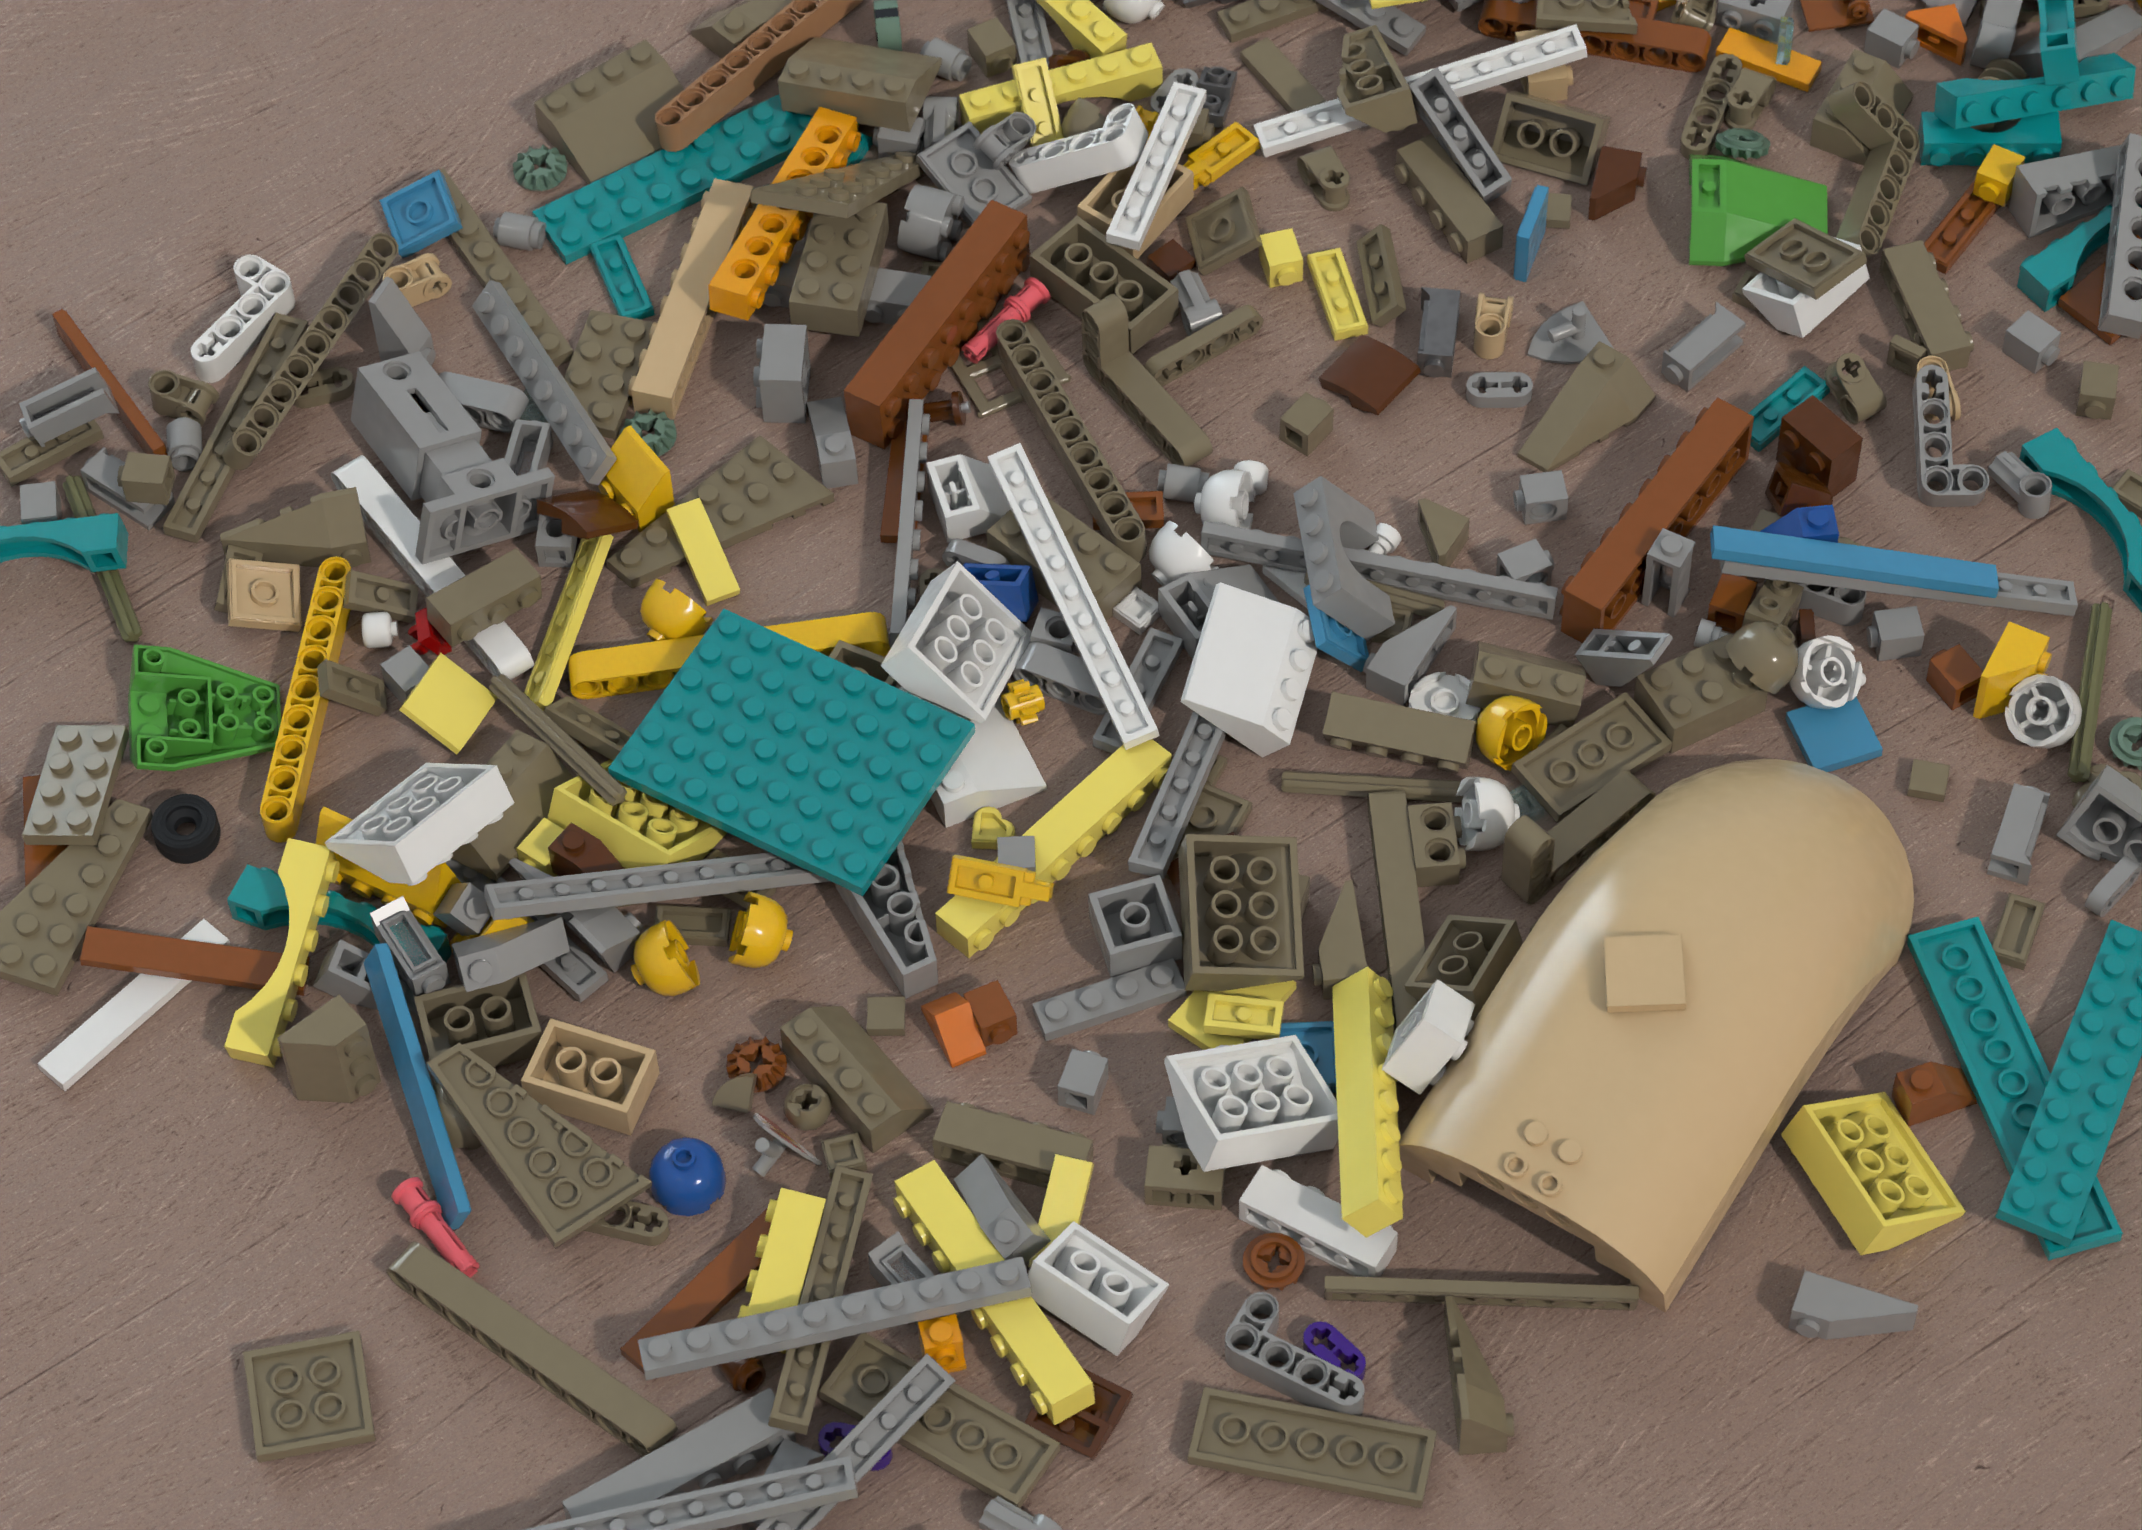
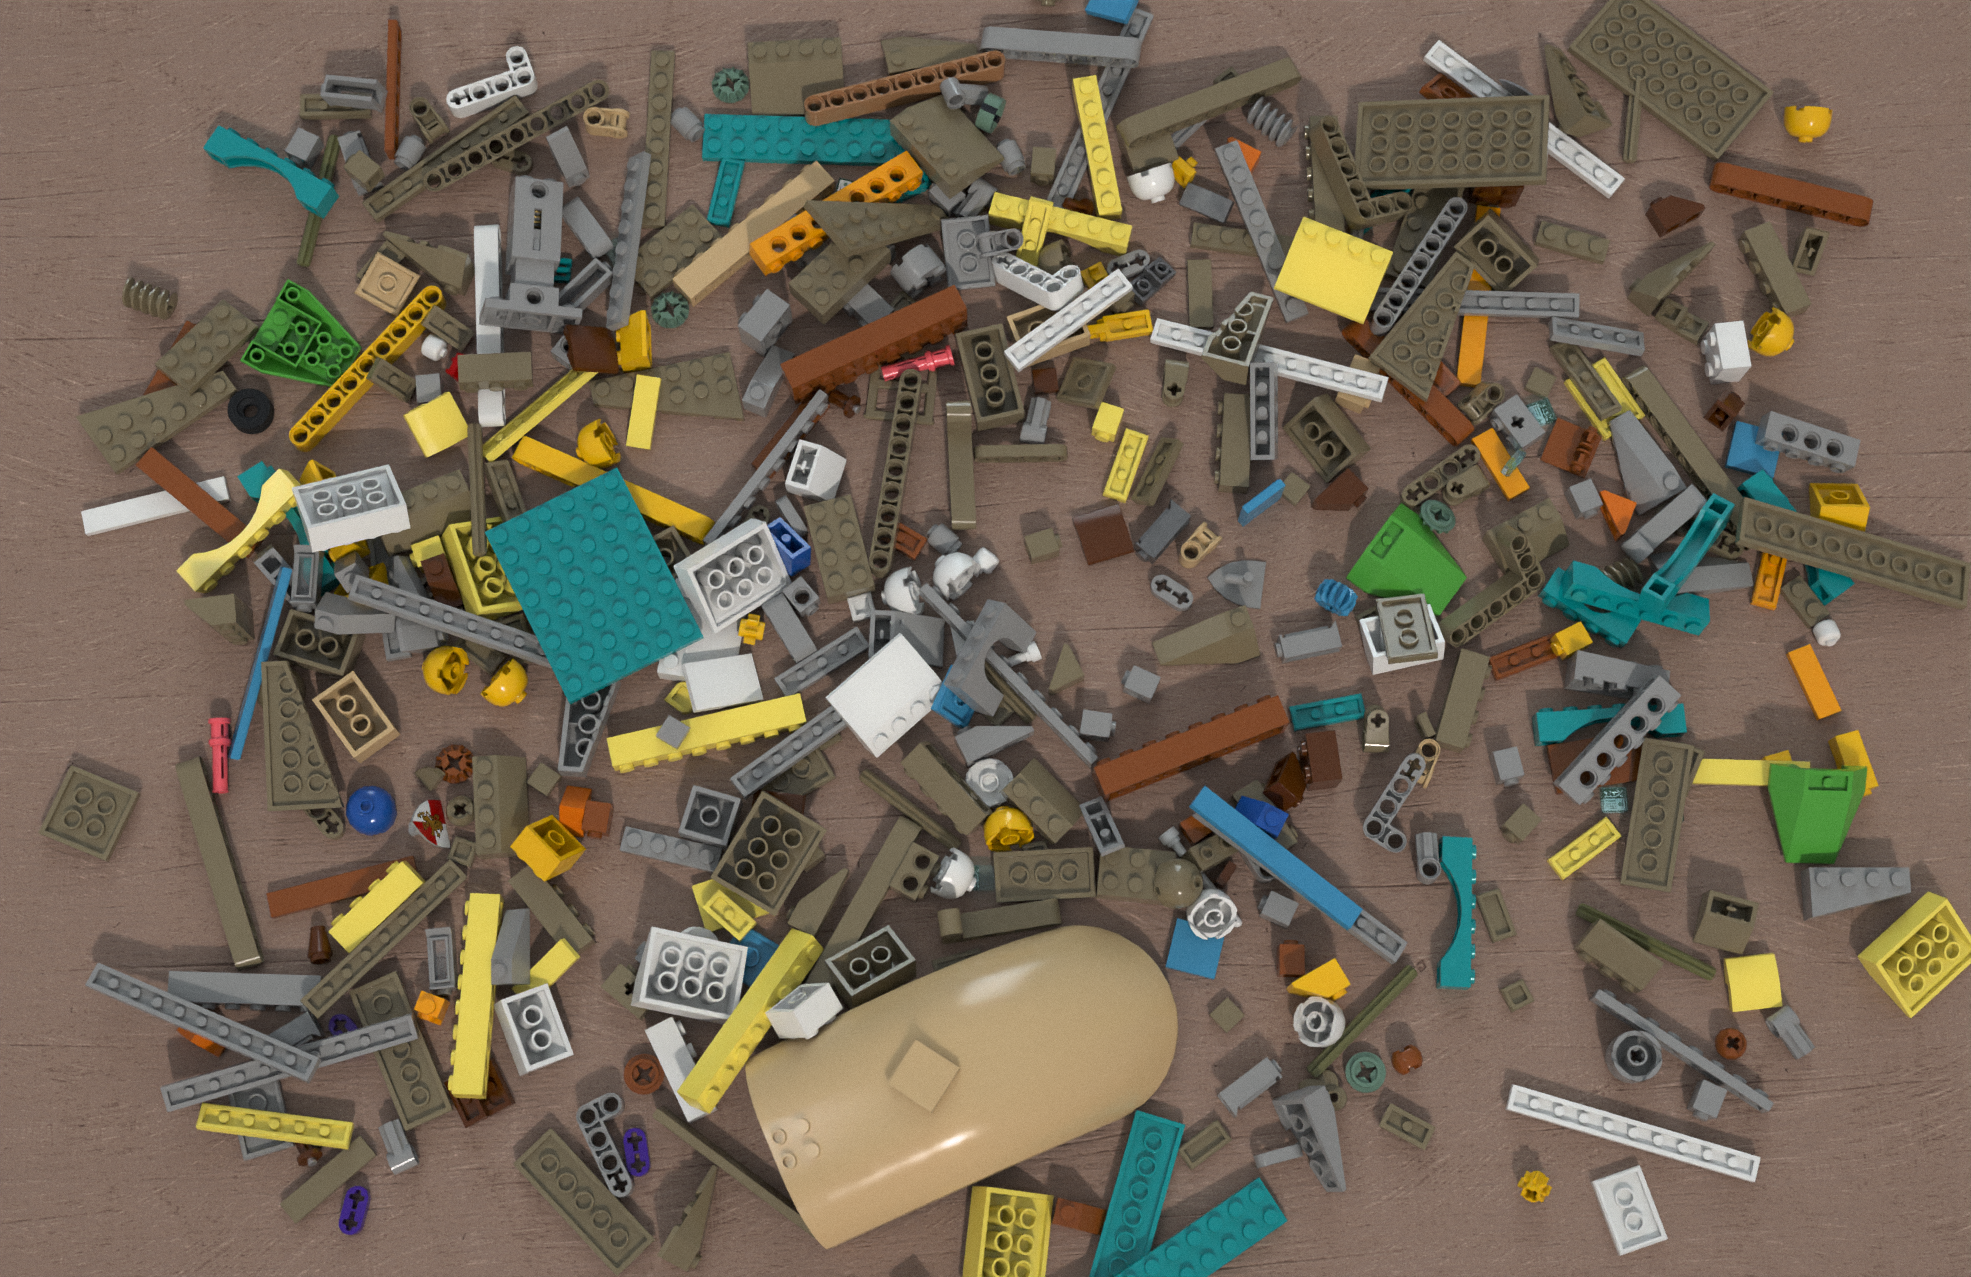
camera: 30 degrees right, 20 degrees up
(421, 214) = (639, 77): dark azure tile -> none
(834, 1318) = (376, 962): light grey plate -> none
(838, 23) = (959, 94): none -> light grey piece
(956, 1071) = (548, 848): none -> yellow brick
(996, 882) = (648, 745): yellow hinge -> none
(1031, 774) = (722, 682): none -> white tile
(1073, 597) = (816, 585): white plate -> none
(1083, 1081) = (619, 894): light grey brick -> none
(1669, 567) = (1172, 787): light grey window -> none
(1696, 281) = (1335, 597): none -> dark azure gear

